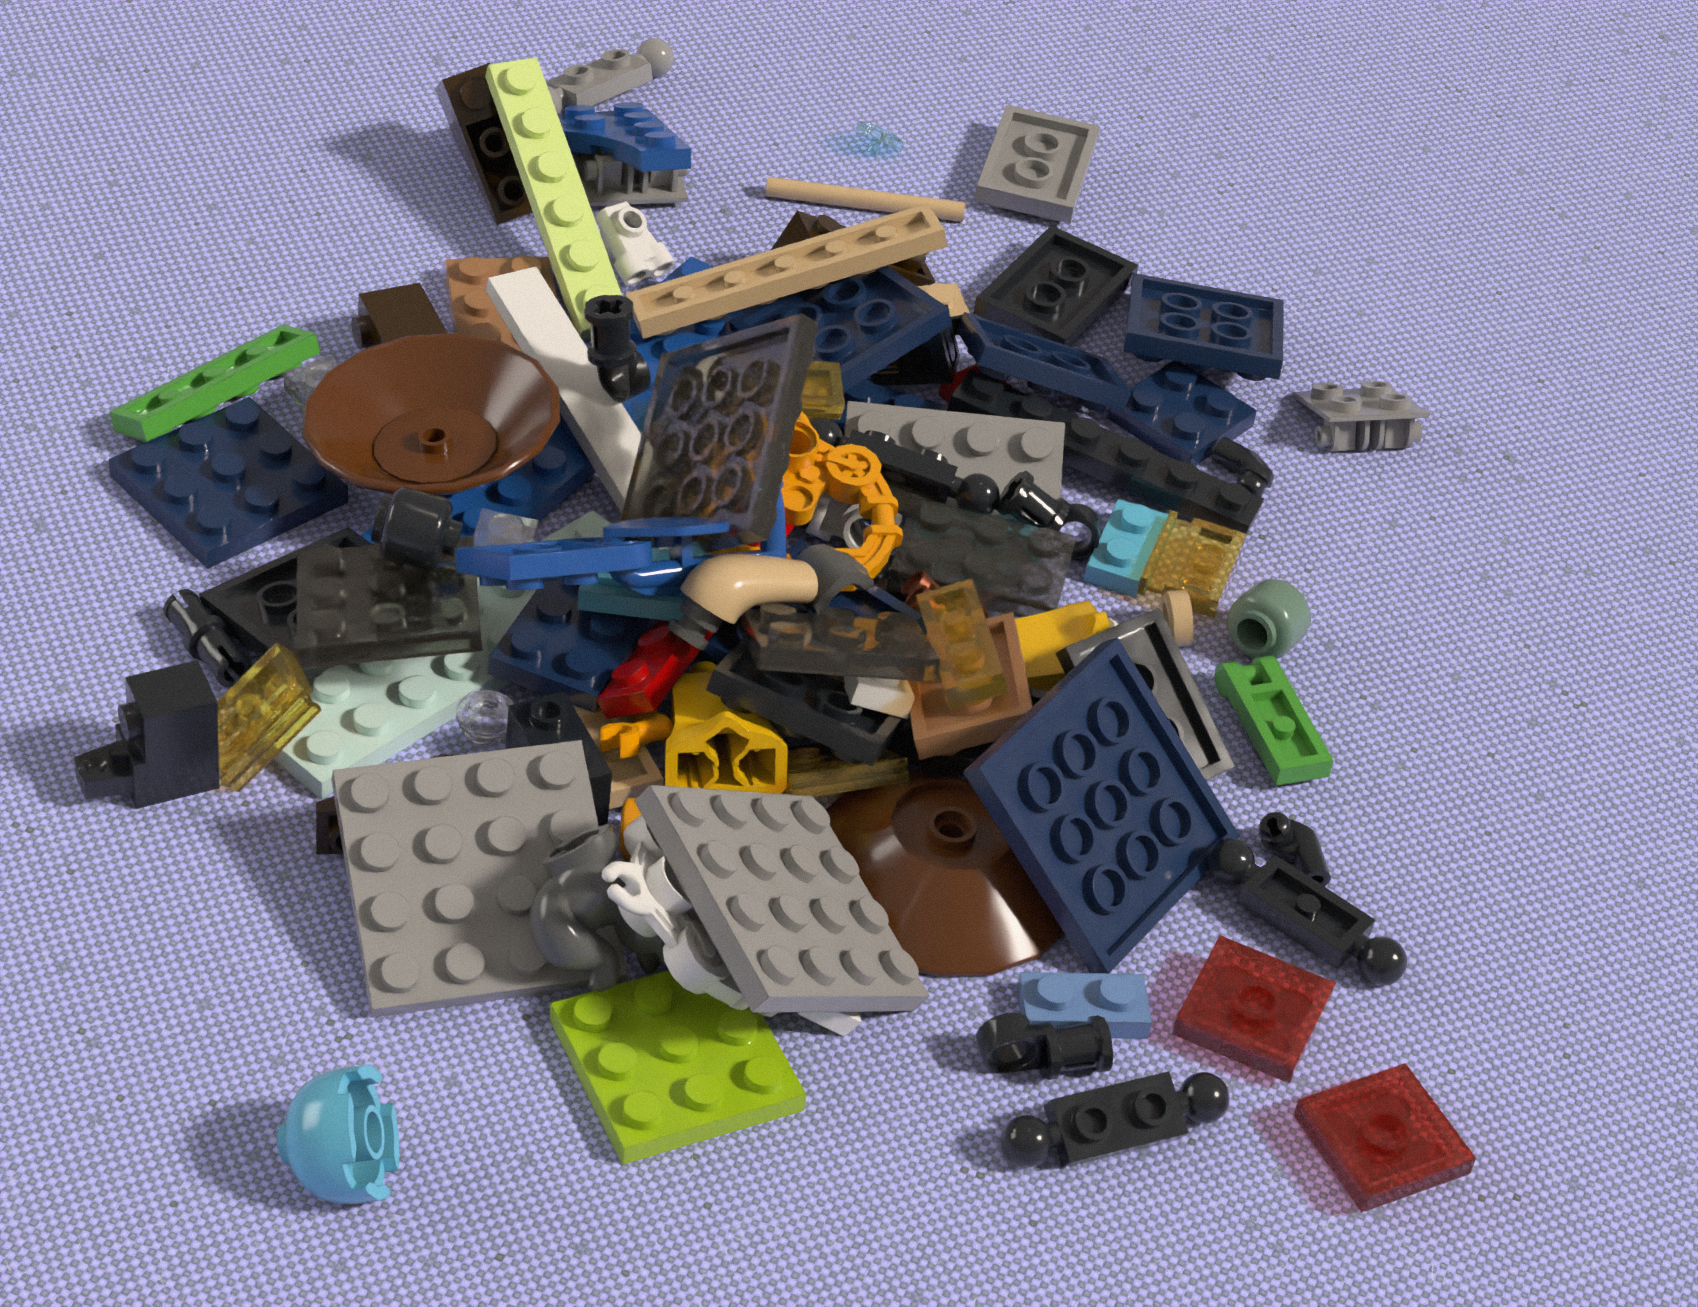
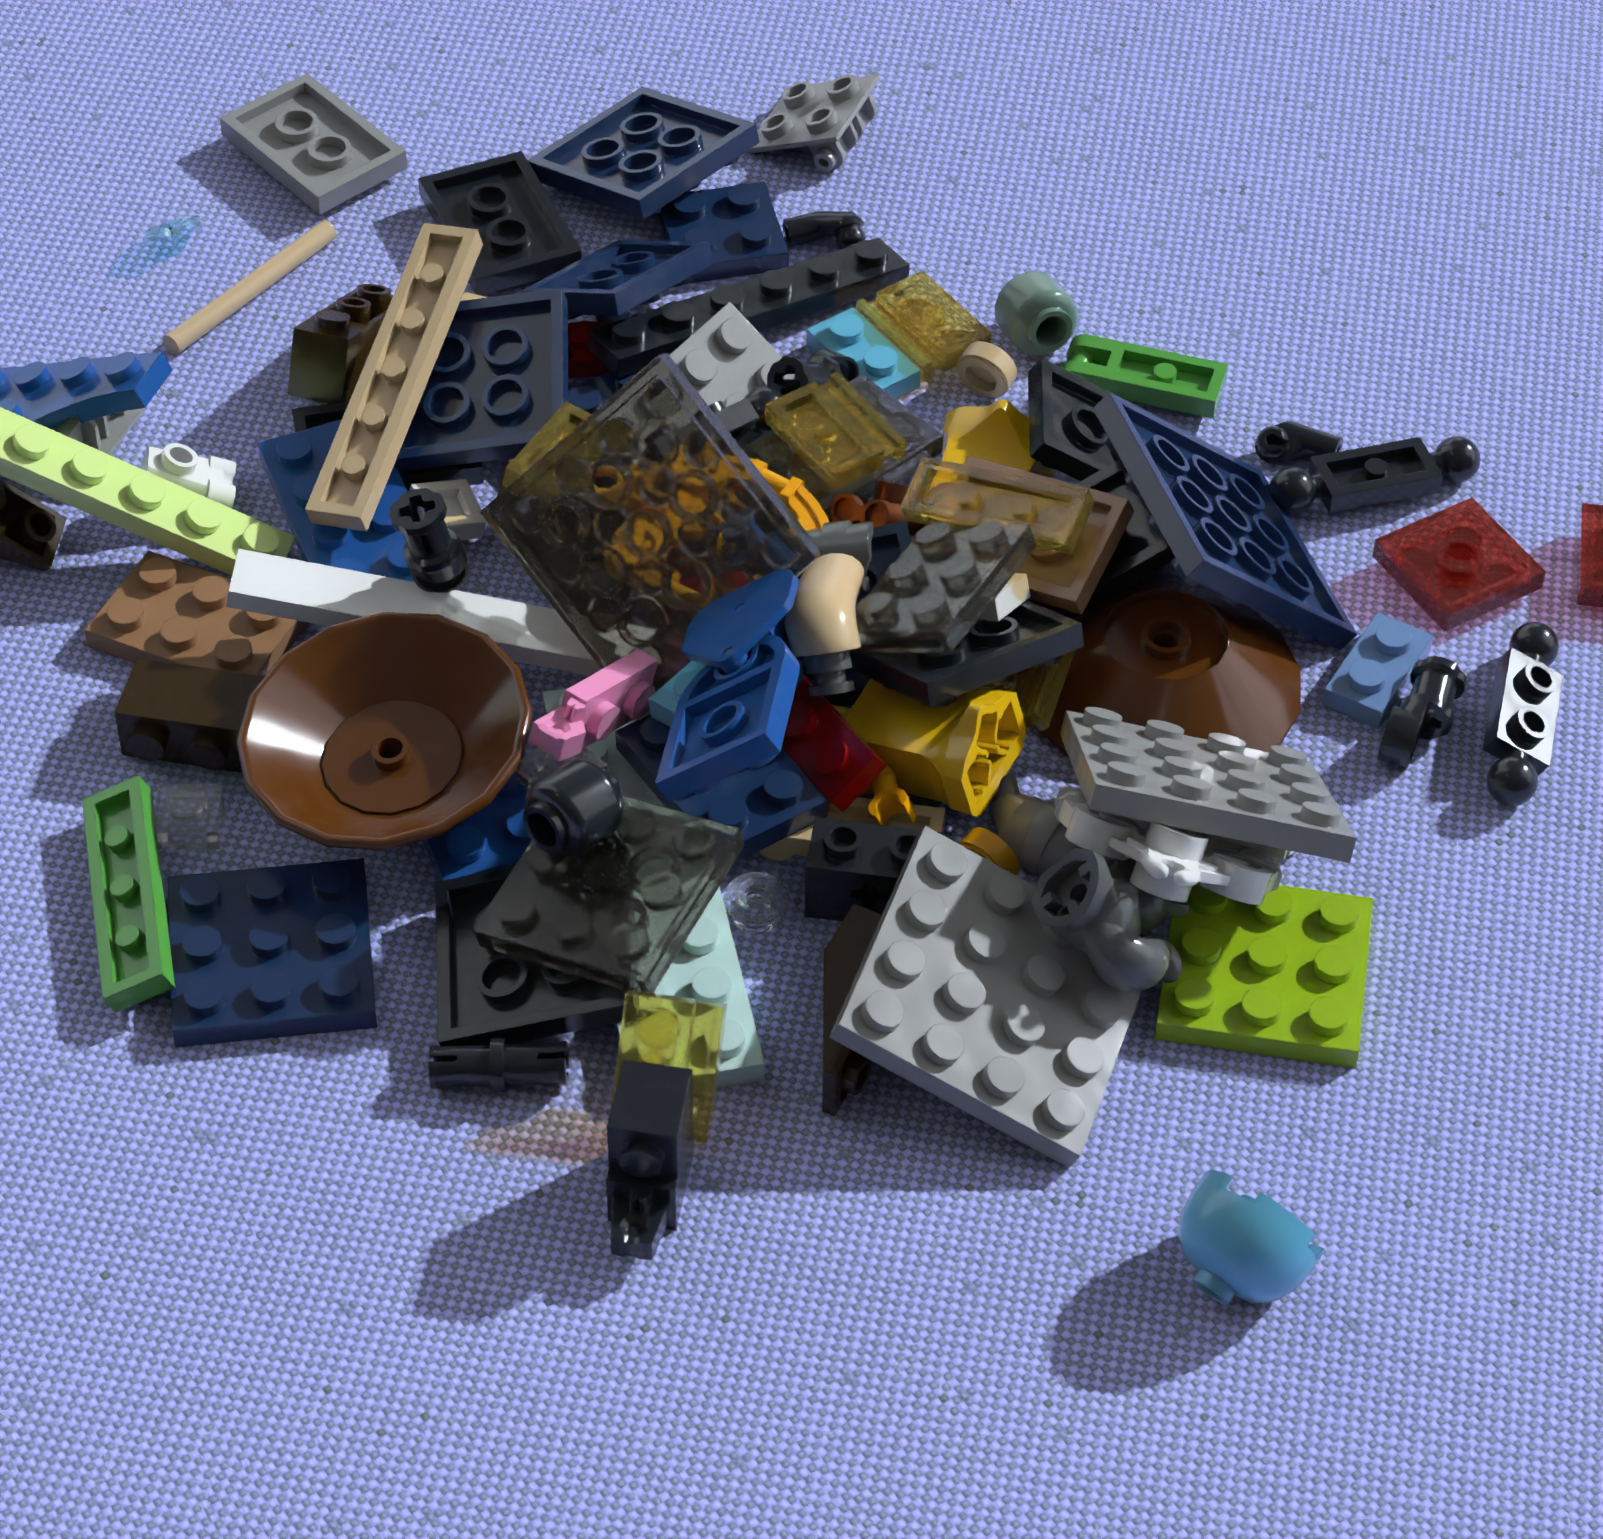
camera: 50 degrees left, 5 degrees up
(543, 509) = (597, 706): none -> bright pink hinge
(972, 530) = (835, 431): none -> clear yellow plate

